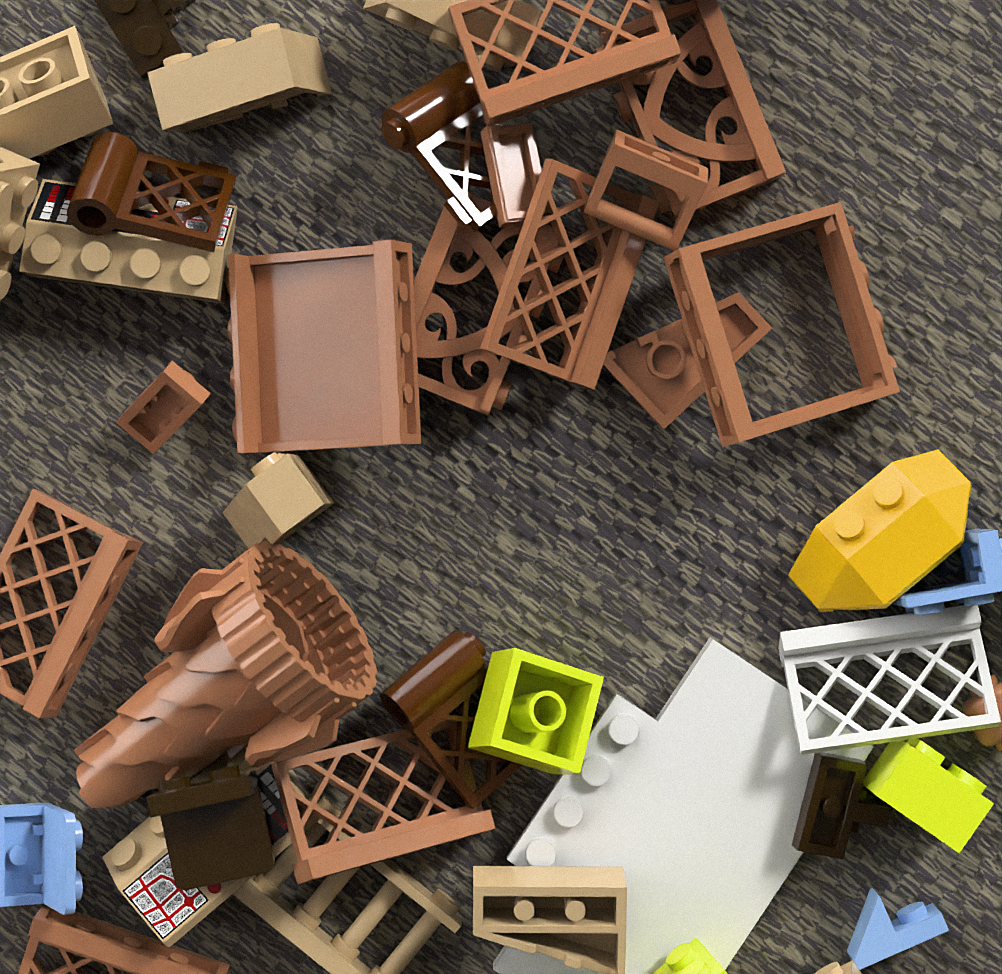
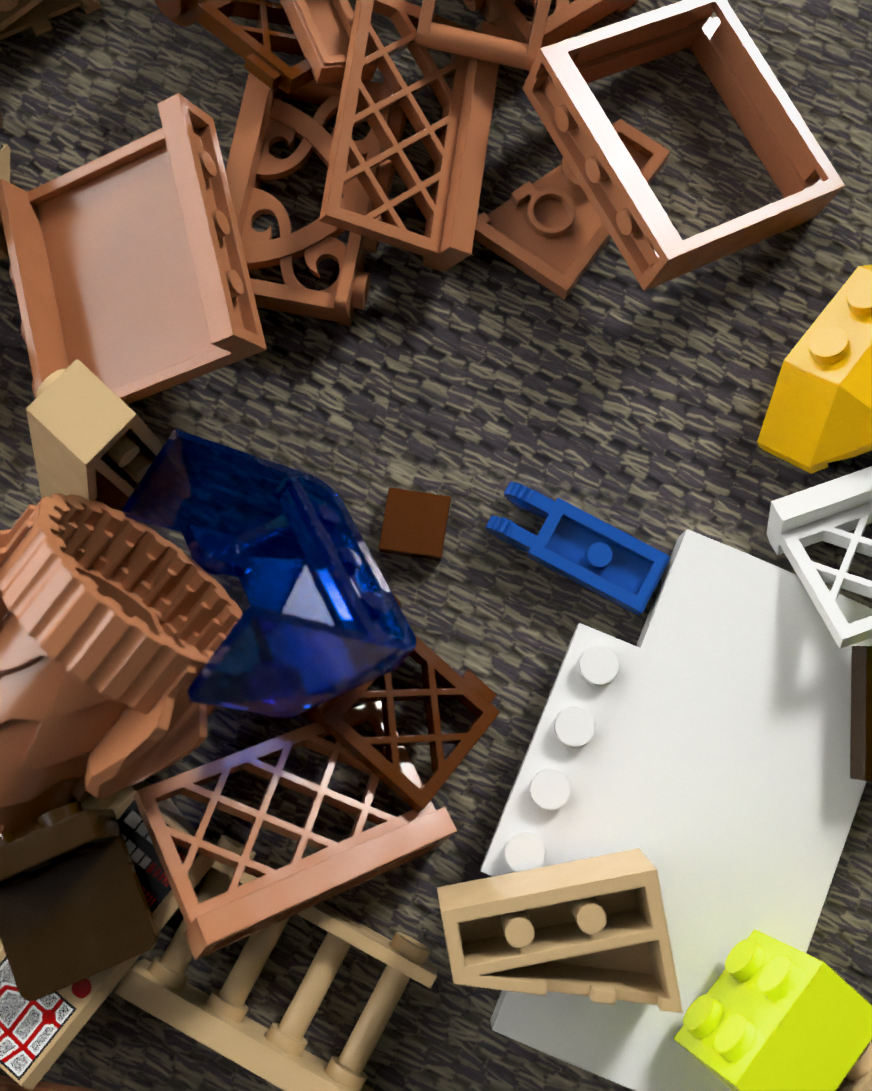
camera: 10 degrees left, 10 degrees down
(417, 619) = (314, 592): none -> clear blue windscreen
(509, 588) = (414, 524): none -> reddish brown tile
(535, 712) = (481, 663): neon yellow brick -> none
(634, 636) = (583, 549): none -> blue hinge

